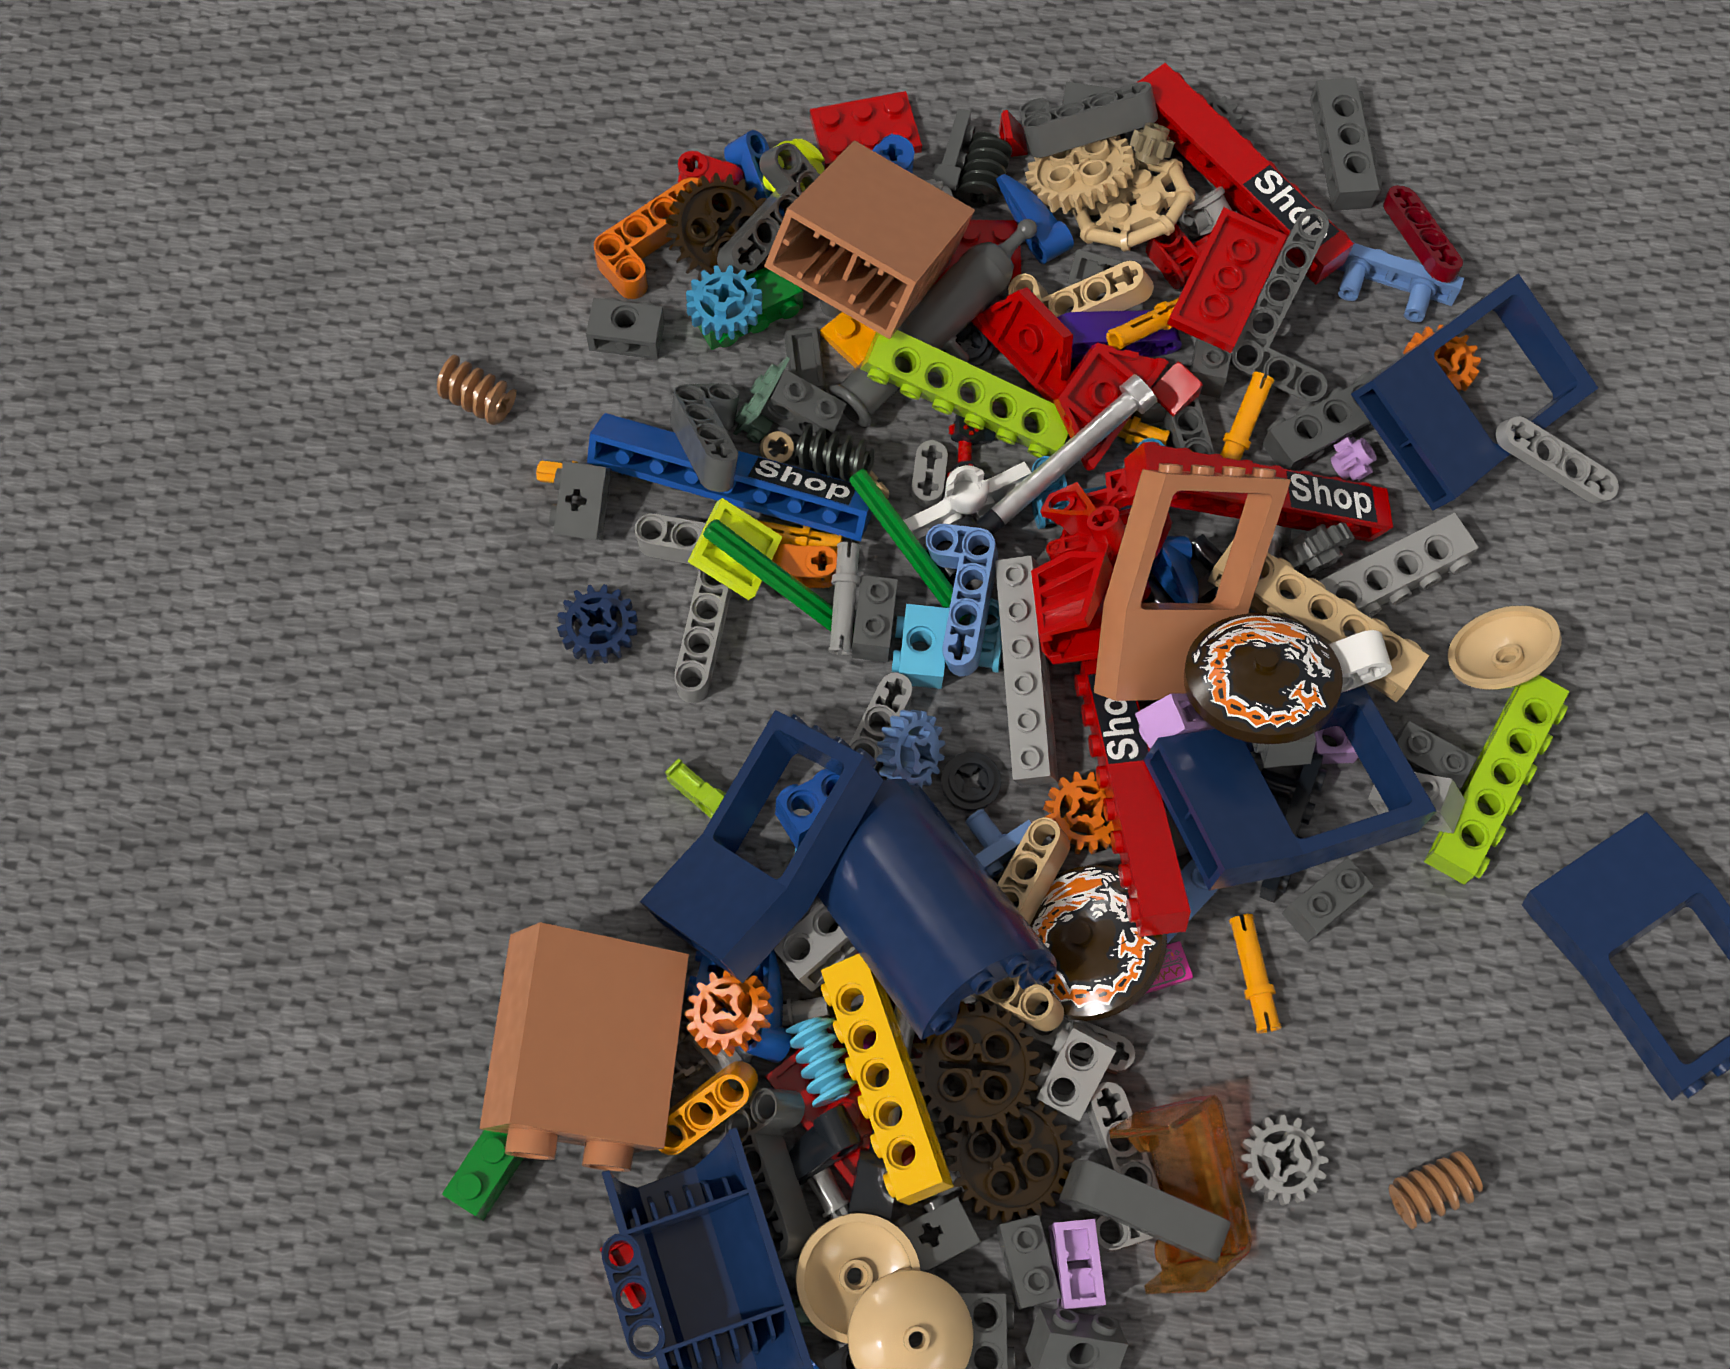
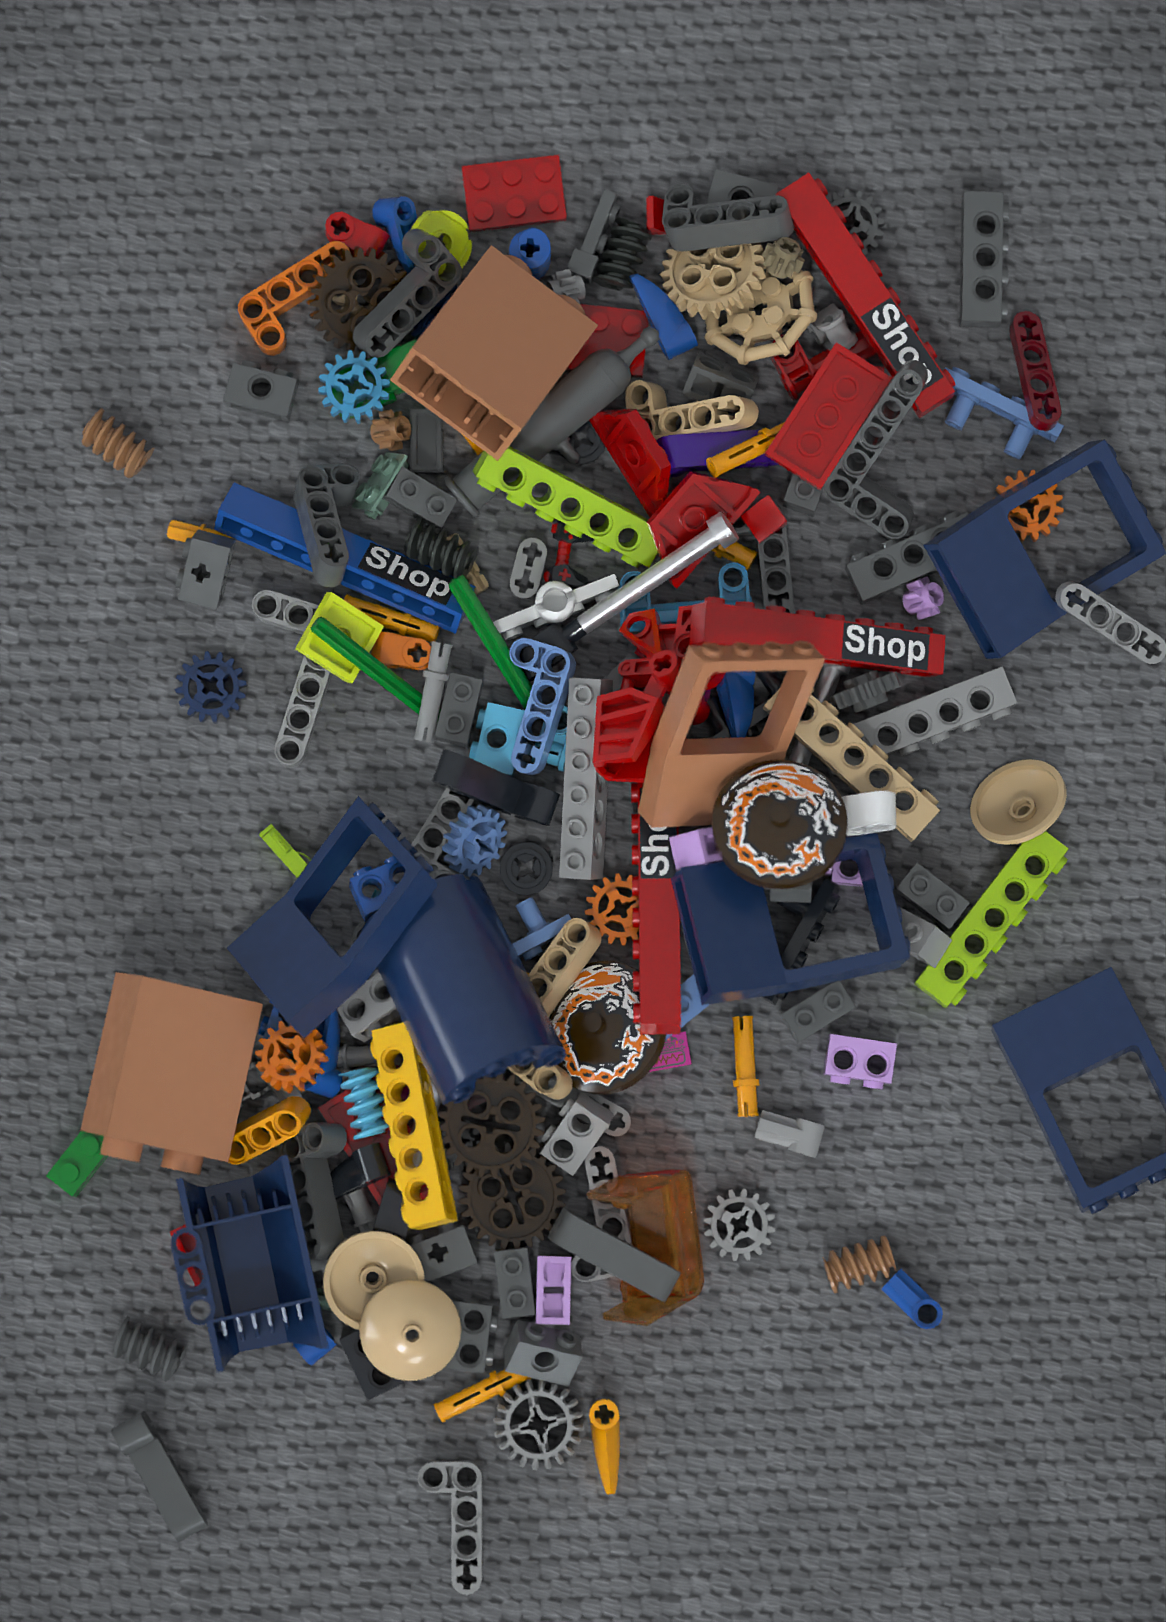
camera: 10 degrees right, 15 degrees up
(765, 349) = (390, 430): none -> medium nougat gear
(773, 437) = (390, 539): tan bush -> none
(926, 688) = (495, 788): none -> black beam
(1238, 438) = (825, 555): light orange pin -> none
(1326, 1044) = (797, 1135): none -> light grey piece
(1383, 942) = (860, 1051): none -> lavender brick
(1504, 1225) = (910, 1298): none -> blue piece

